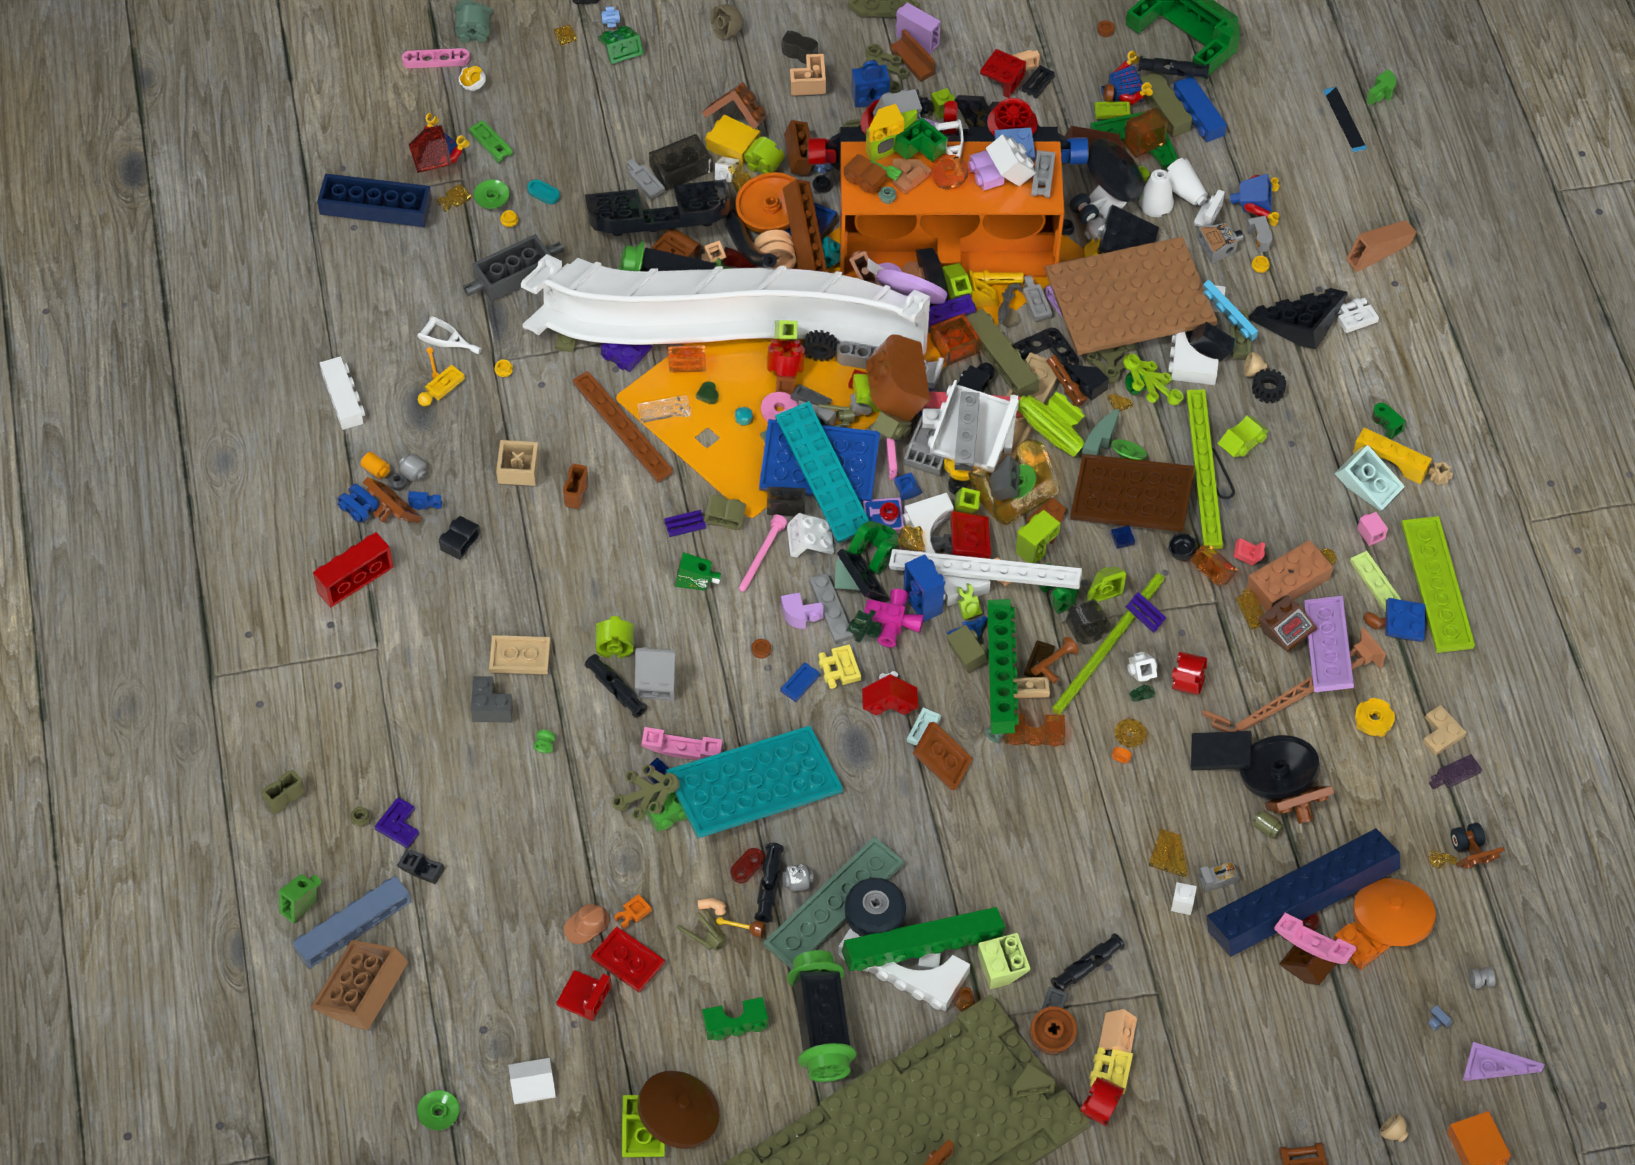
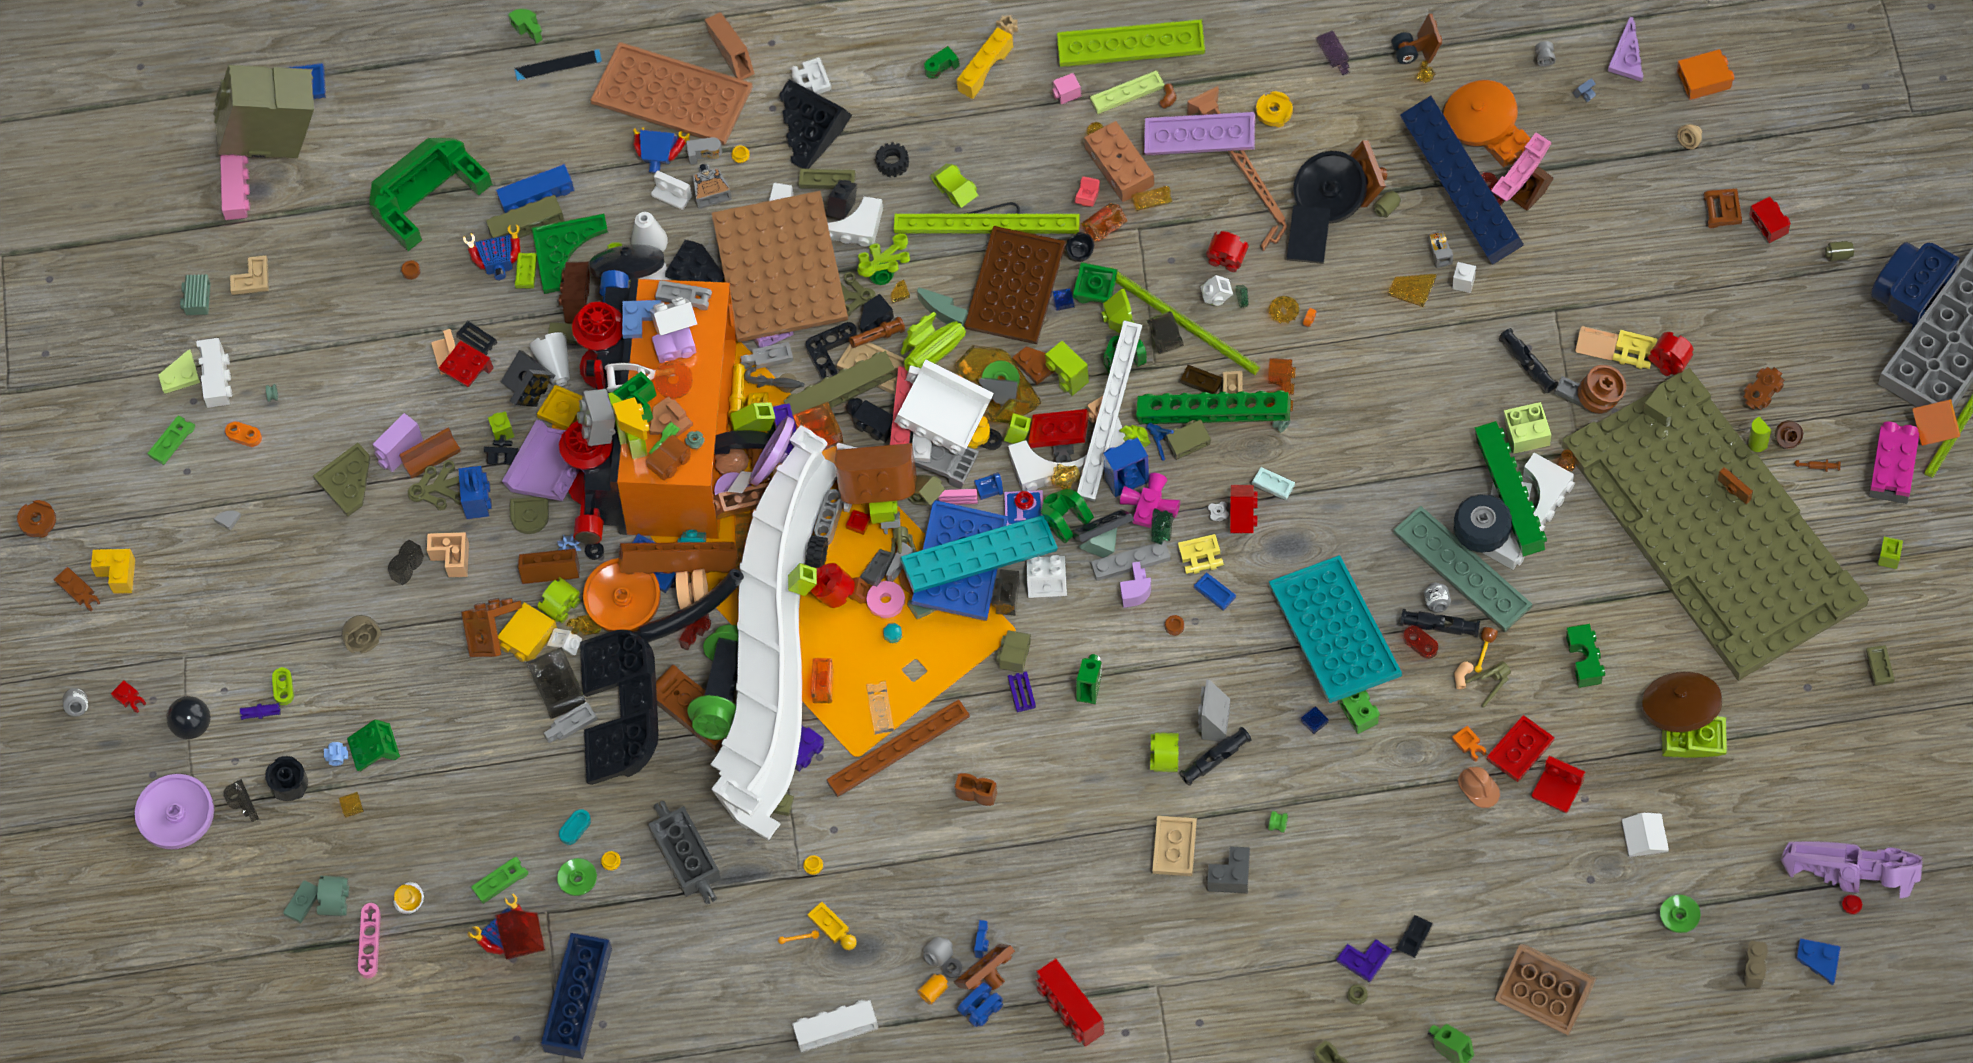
camera: 80 degrees left, 5 degrees up
(351, 922) = (1478, 996): sand blue brick -> none
(451, 341) = (769, 916): white piece -> none
(456, 196) = (573, 916): clear yellow plate -> none
(459, 537) = (1029, 904): black brick -> none
(517, 462) = (942, 845): tan brick -> none
(647, 792) = (1348, 719): olive plant -> none
(680, 746) = (1286, 695): bright pink slope -> none
(708, 393) = (861, 666): clear green tile -> none
(713, 252) = (688, 654): light nougat leg -> none
(777, 524) = (1030, 604): bright pink piece -> none
(821, 1016) = (1590, 575): brick -> none
(942, 755) = (1312, 465): dark orange plate -> none
(967, 431) = (953, 411): light grey piece -> none
(1069, 646) = (1188, 353): dark orange piece -> none
(1108, 92) = (509, 268): dark orange tile -> none
(1128, 449) = (962, 285): bright green dish -> none
(1140, 560) = (1094, 283): none -> green slope
(1145, 132) = (574, 234): clear orange brick -> none
(1147, 609) = (1150, 282): dark purple tile -> none
(1179, 68) = (492, 191): black piece -> none
(1186, 182) = (630, 206): white cone -> none
(1234, 315) = (804, 181): medium azure plate -> none
(1253, 364) = (867, 170): tan brick -> none
(1286, 624) = (1176, 165): reddish brown slope -> none
(1321, 205) = (671, 93): none -> nougat plate
(1369, 478) = (1008, 85): light aqua slope -> none
(1405, 620) = (1171, 72): blue plate -> none
(1446, 733) = (1289, 53): tan plate -> none

